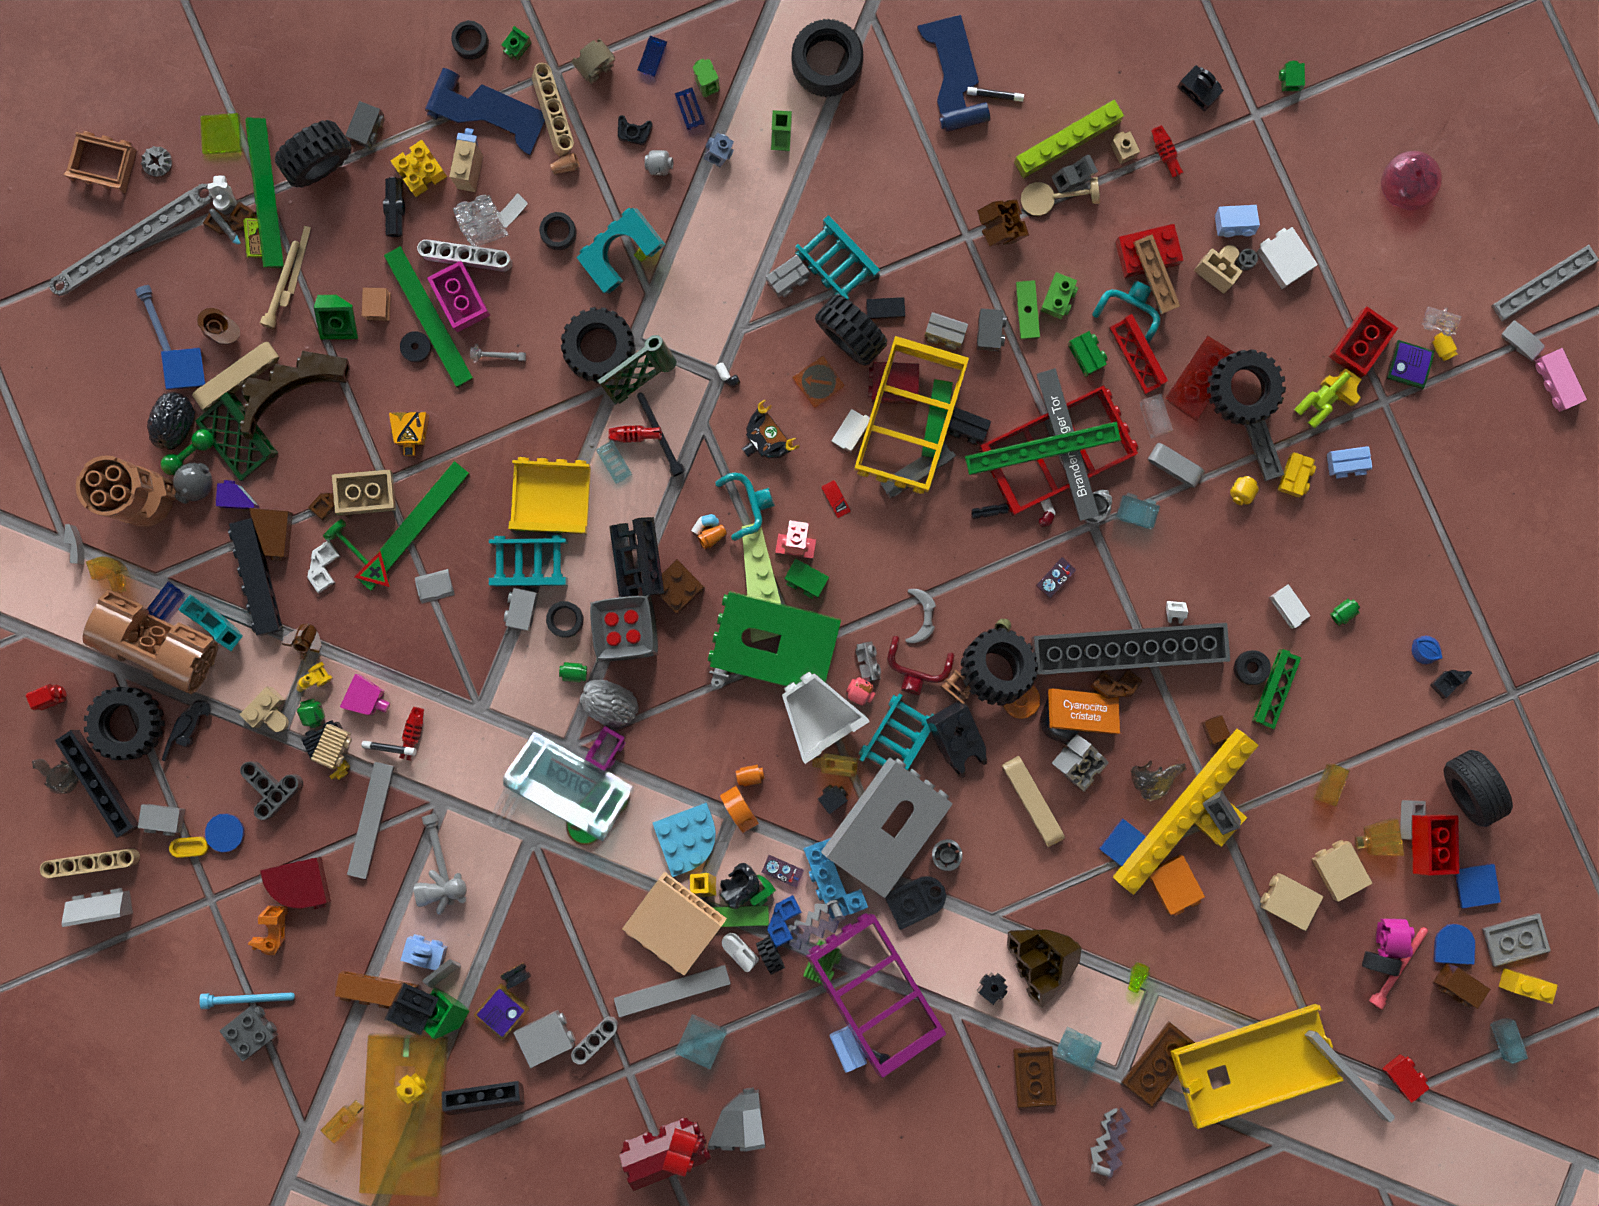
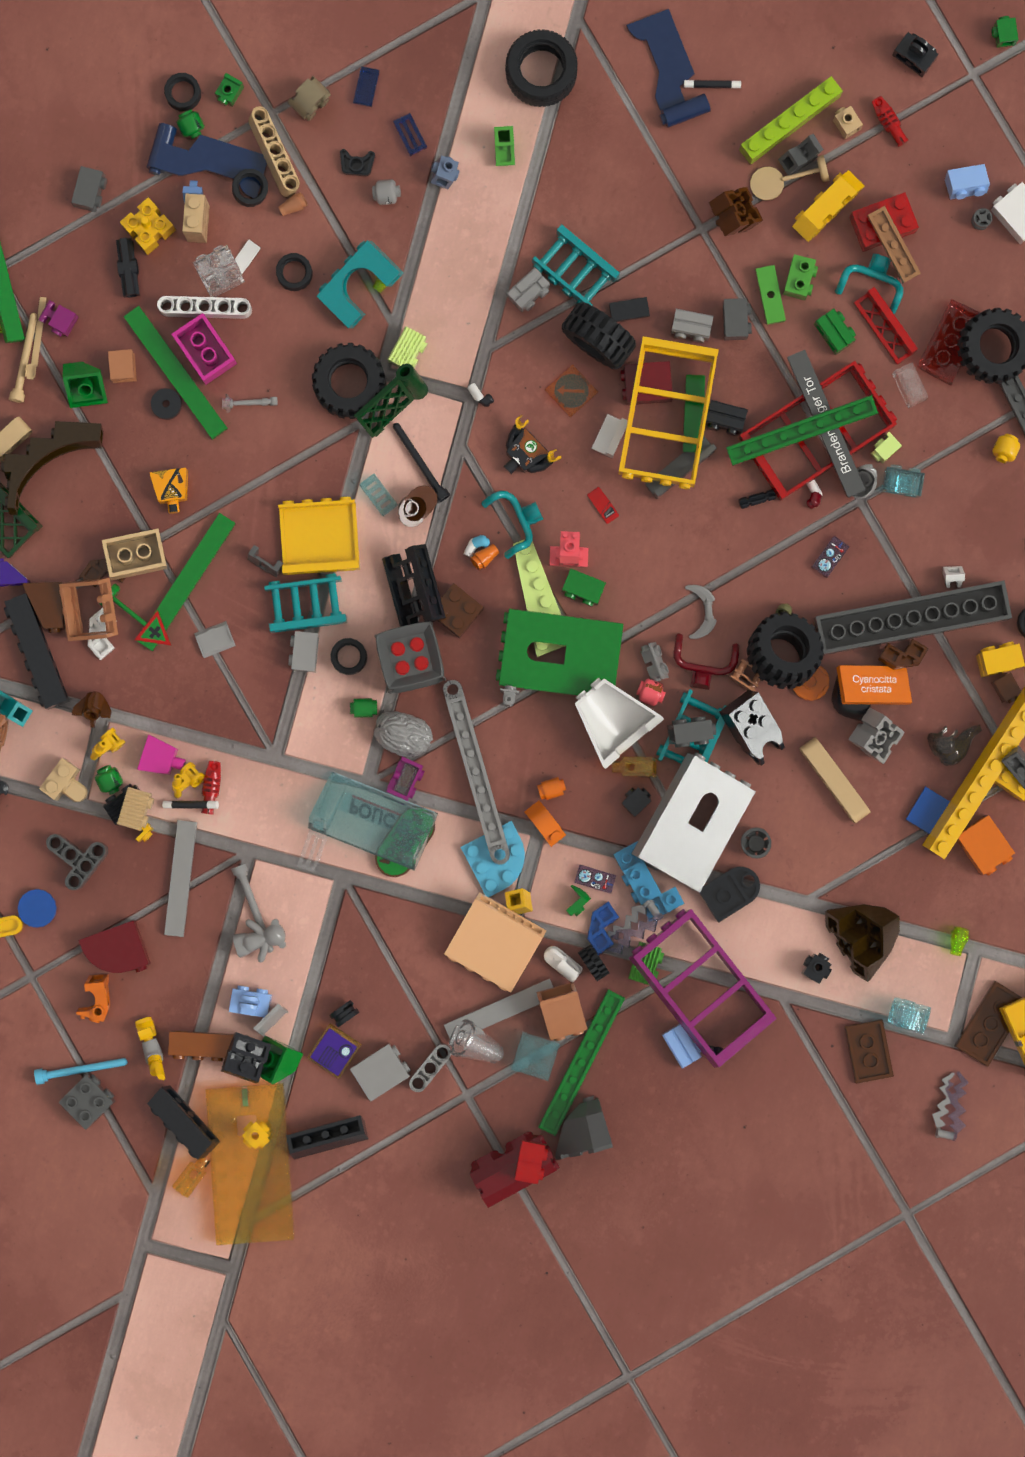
camera: 10 degrees left, 0 degrees up
(295, 542) = (72, 611): none -> nougat window
(313, 153) = (43, 224): black tyre -> none
(319, 985) = (151, 1047): none -> yellow piece
(321, 251) = (61, 320): none -> magenta brick
(341, 1066) = (183, 1122): none -> black brick
(390, 720) = (187, 777): none -> yellow piece
(473, 72) = (190, 124): none -> green head
(481, 508) = (252, 557): none -> dark grey piece
(524, 156) = (245, 201): none -> black tyre
(633, 433) = (394, 464): red hinge -> none
(641, 1022) = (473, 1043): none -> clear cone
(650, 477) = (417, 505): none -> reddish brown piece
(661, 320) = (407, 348): none -> yellowish green brick
(676, 750) = (476, 772): none -> light grey plate
(706, 77) = (423, 102): bright green brick -> none
(732, 1000) = (562, 1011): none -> nougat slope
(741, 886) = (556, 899): black hair -> none
(745, 915) = (564, 927): bright green tile -> none
(746, 1053) = (581, 1062): none -> green tile
(899, 737) = (696, 731): none -> dark grey brick
(1095, 227) = (827, 205): none -> yellow brick
(1123, 476) = (885, 448): none -> yellowish green brick
(1176, 465) = (936, 431): light grey beam -> none
(1213, 702) = (1004, 659): none -> yellow piece
(1220, 267) = (955, 230): tan brick -> none

